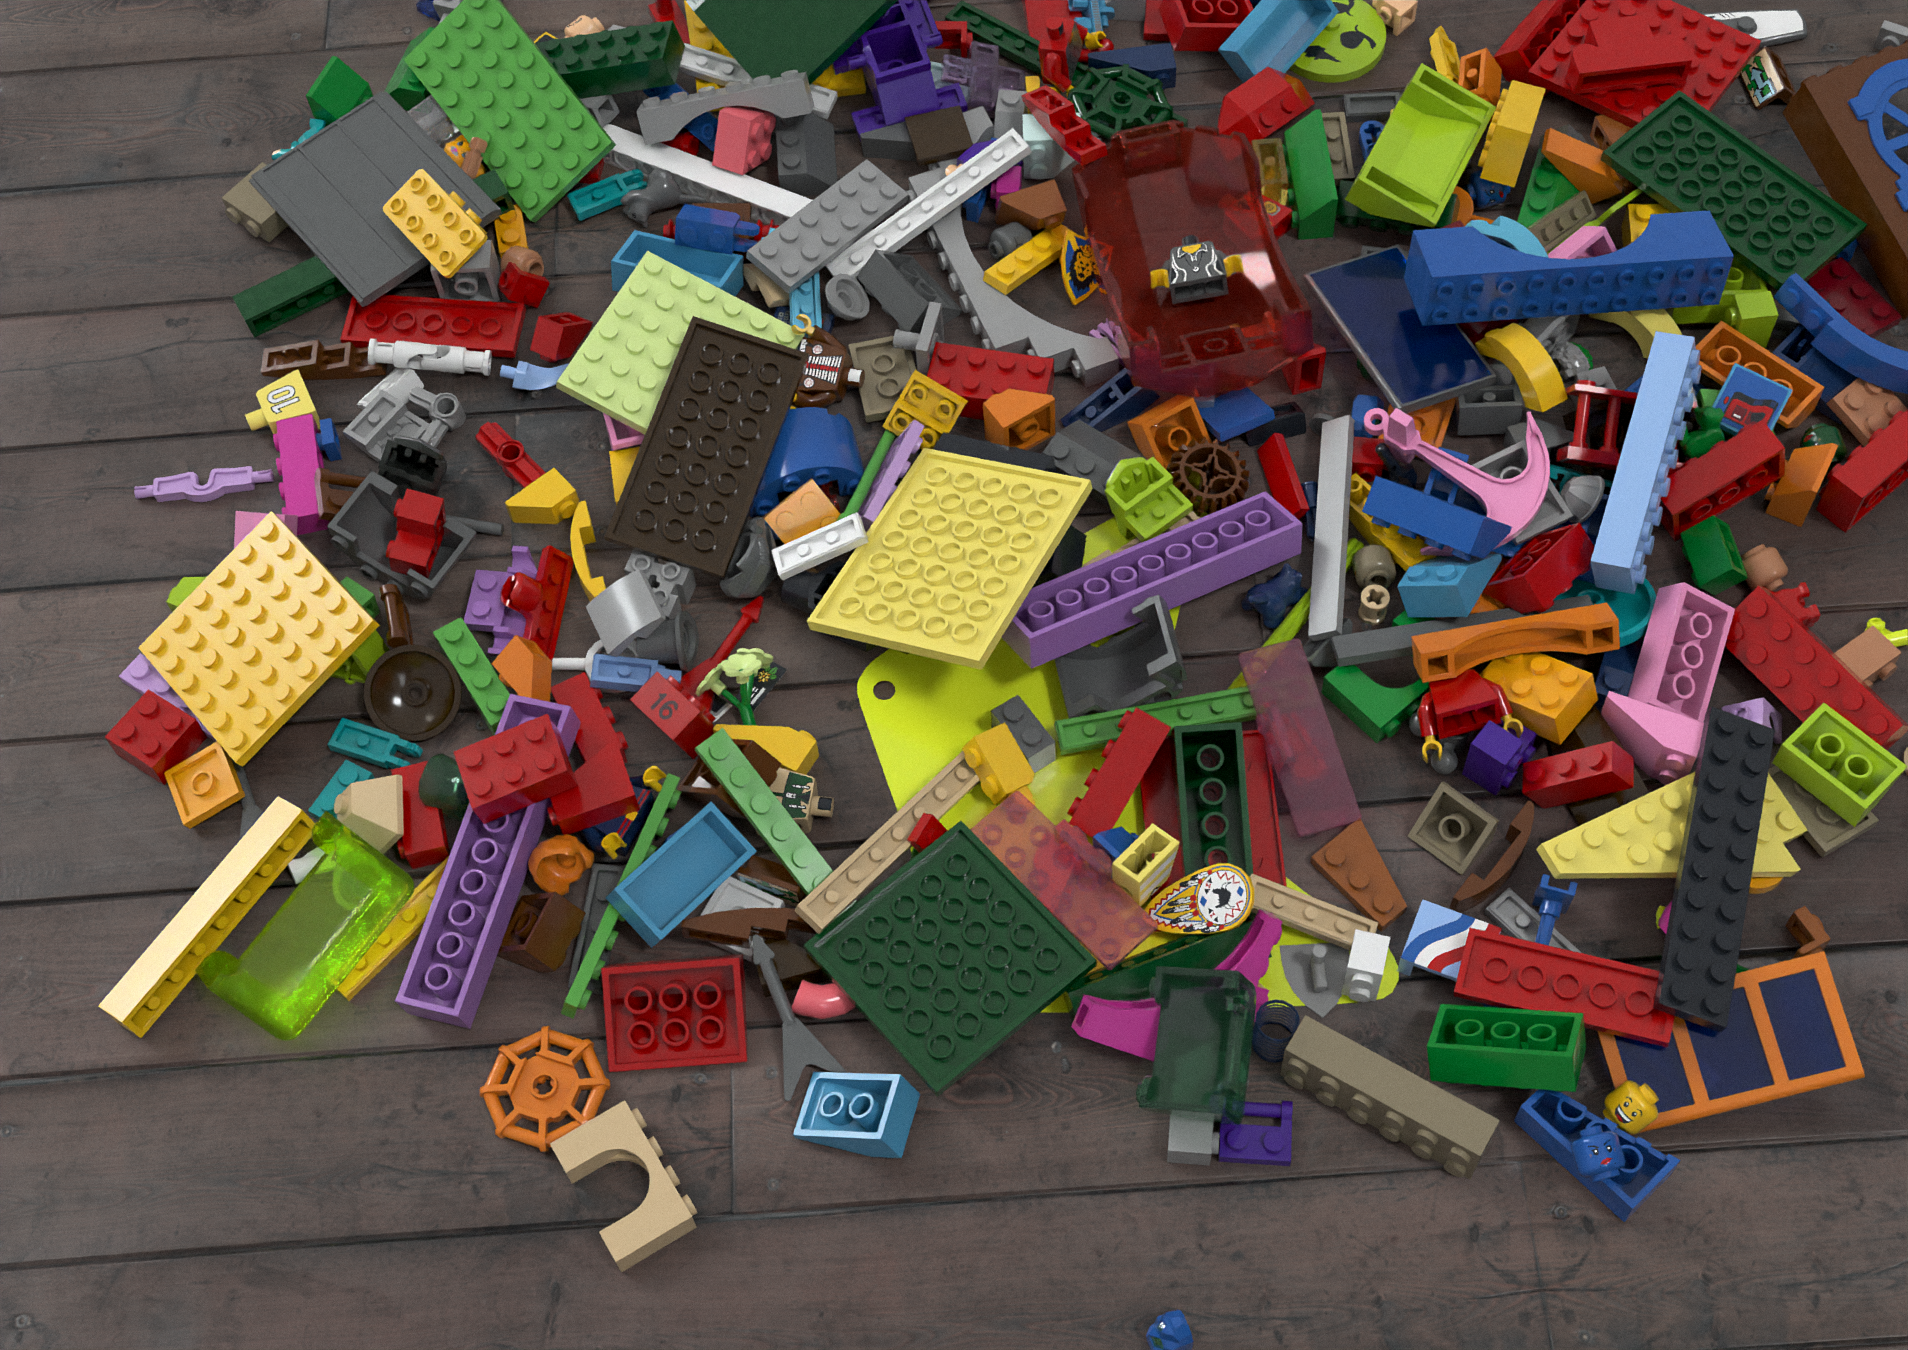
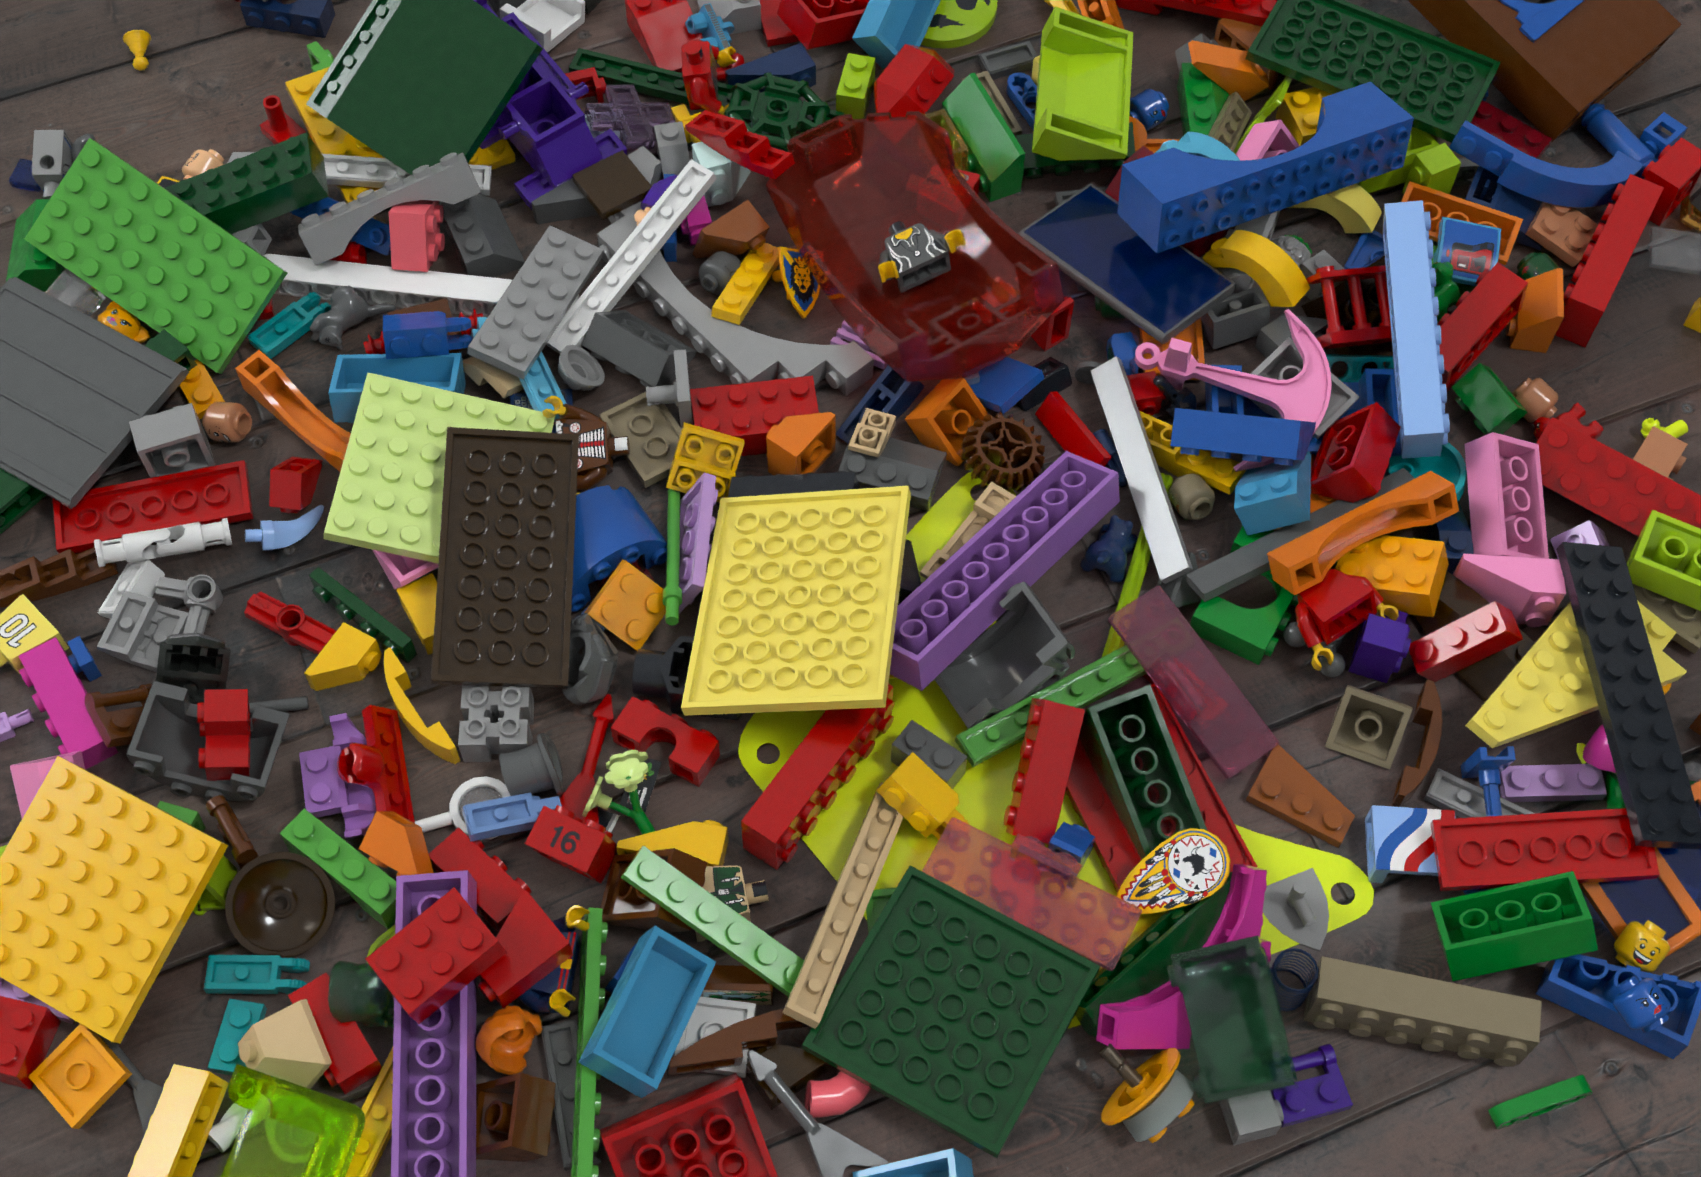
camera: 25 degrees left, 0 degrees up
(436, 222) = (126, 400): yellow bracket -> none
(473, 158) = (135, 324): nougat axle -> none
(522, 285) = (236, 442): red bracket -> none
(578, 261) = (283, 399): none -> orange arch
(578, 474) = (369, 621): none -> dark green plate
(625, 612) = (483, 752): light grey slope -> none
(781, 632) = (644, 724): none -> red arch
(819, 546) = (659, 627): white tile -> none
(911, 718) = (811, 780): none -> red brick
(926, 832) = (879, 889): red plate -> none
(1087, 426) = (872, 433): none -> tan slope
(1098, 1089) = (1148, 1095): none -> piece
(1138, 872) = (1103, 865): light yellow torso -> none
(1144, 498) = (958, 490): lime piece -> none
(1205, 98) = (856, 85): none -> lime brick
(1309, 913) = (1282, 853): tan tile -> none
(1365, 966) = (1348, 888): white brick -> none
(1375, 605) = (1205, 532): tan bush -> none
(1472, 1216) = (1540, 1101): none -> green beam
(1510, 133) = (1157, 53): yellow brick -> none
(1583, 496) = (1361, 375): light grey piece -> none
(1614, 934) = (1552, 783): none -> lavender plate

